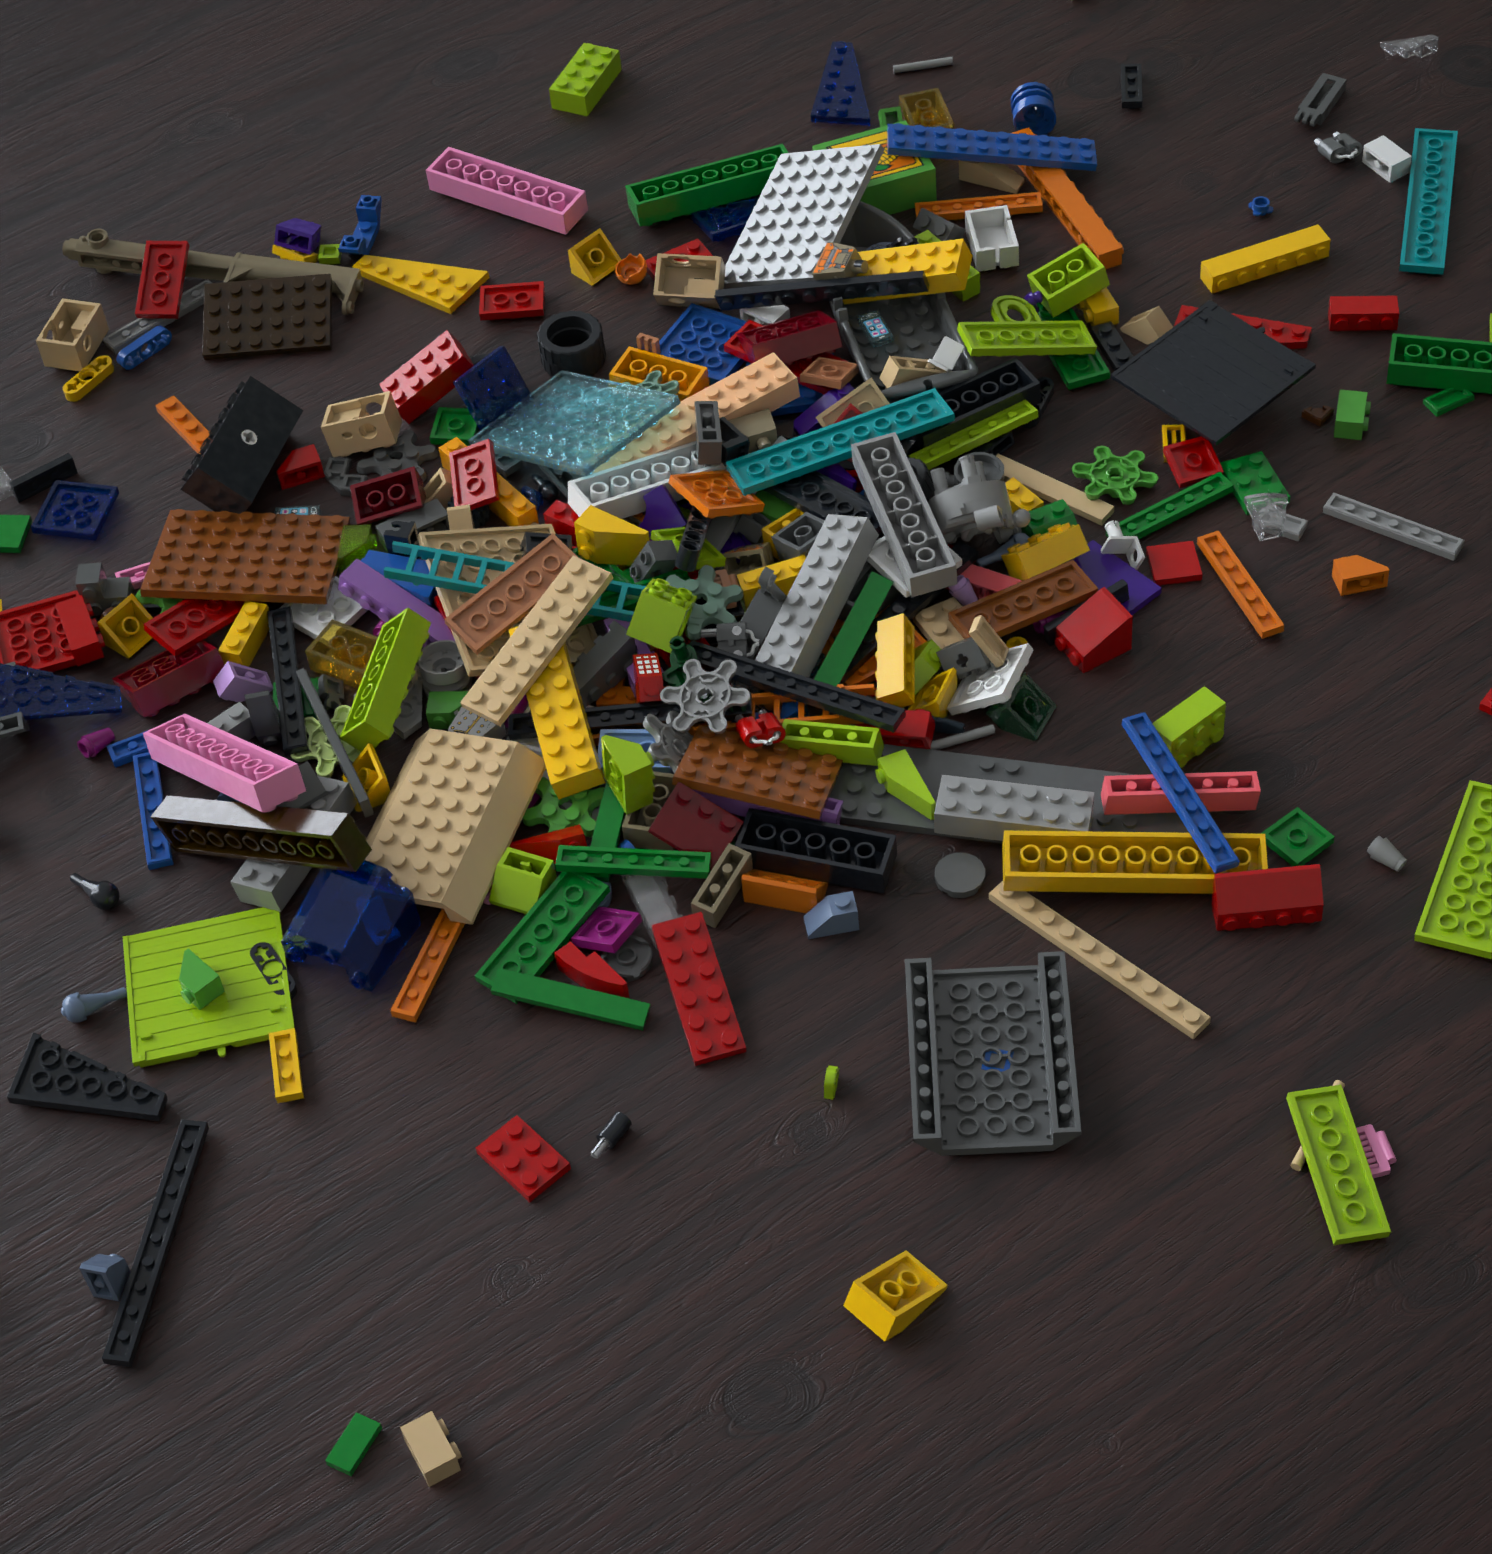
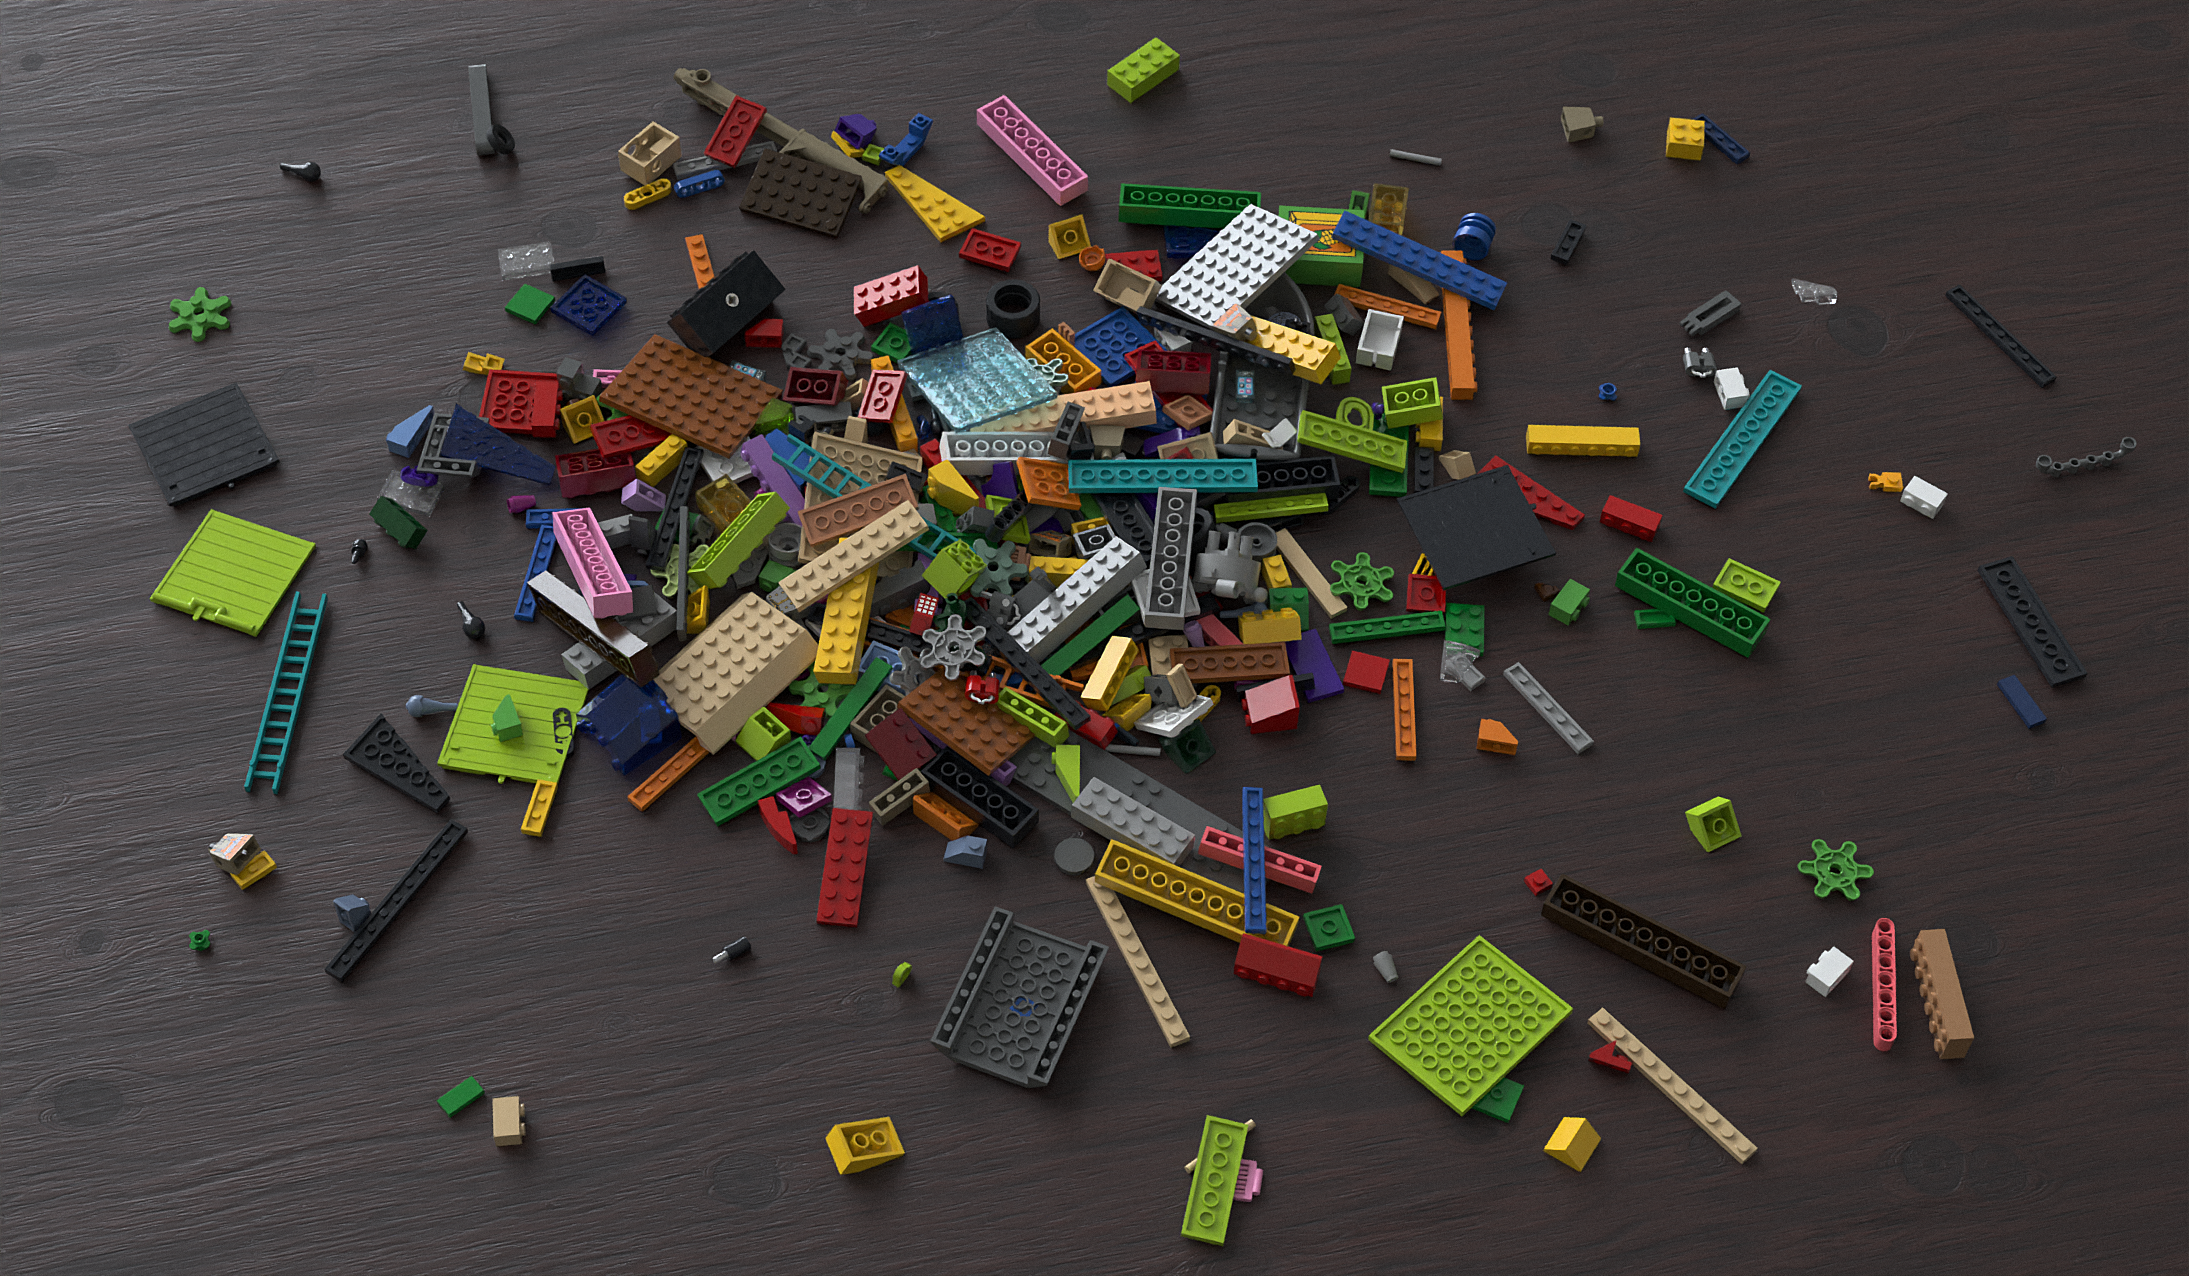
camera: 15 degrees right, 5 degrees up
(353, 430) = (816, 317): tan piece -> none
(523, 1158) = (666, 942): red plate -> none
(570, 999) = (754, 839): green tile -> none
(628, 772) = (868, 688): lime slope -> none
(633, 861) = (844, 754): green plate -> none
(841, 90) = (1338, 157): clear blue wing -> none
(1120, 544) = (1331, 641): white bracket -> none

